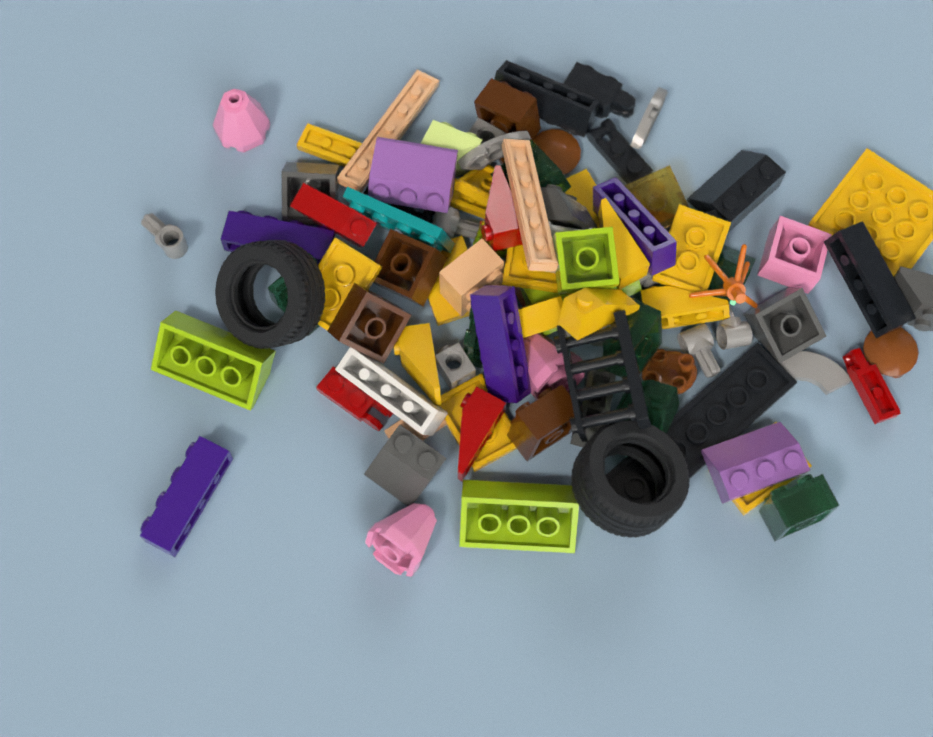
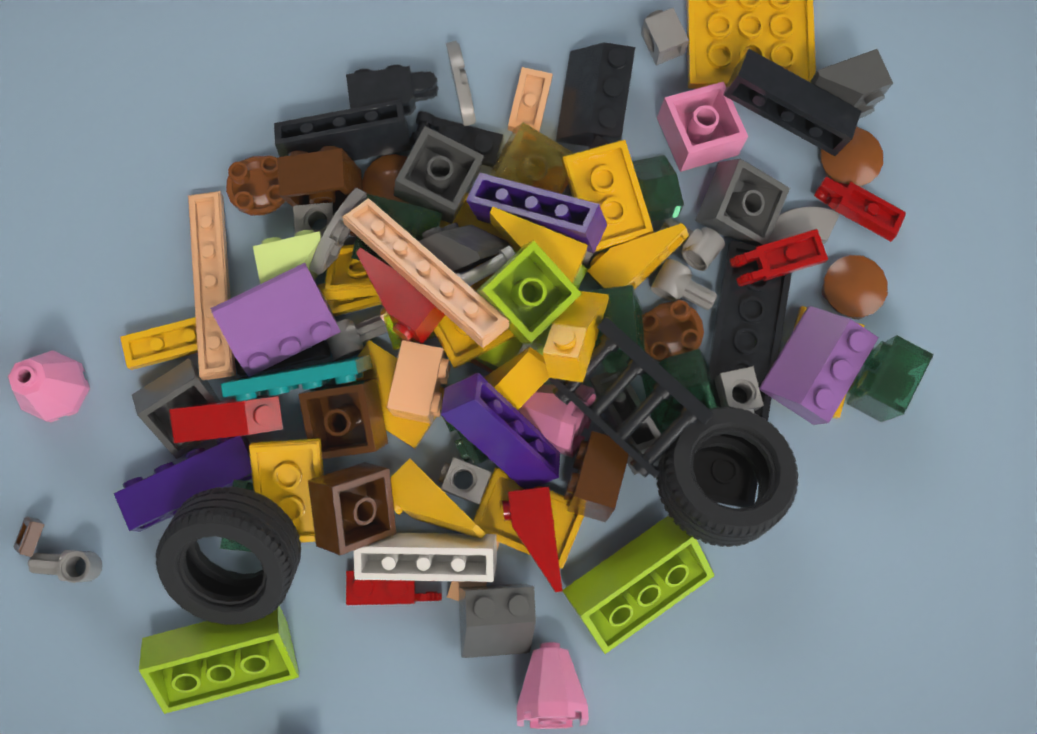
camera: 40 degrees left, 10 degrees up
(157, 201) = (28, 536): none -> tile
(461, 91) = (254, 185): none -> dark orange dish
(587, 160) = (438, 174): none -> dark grey brick
(690, 160) = (530, 98): none -> light nougat plate
(691, 431) = (743, 379): none -> light grey brick
(733, 286) = (677, 207): orange plant -> none
(783, 375) = (782, 257): none -> red hinge
(814, 182) = (664, 35): none -> light grey brick
(825, 437) = (855, 286): none -> dark orange dish

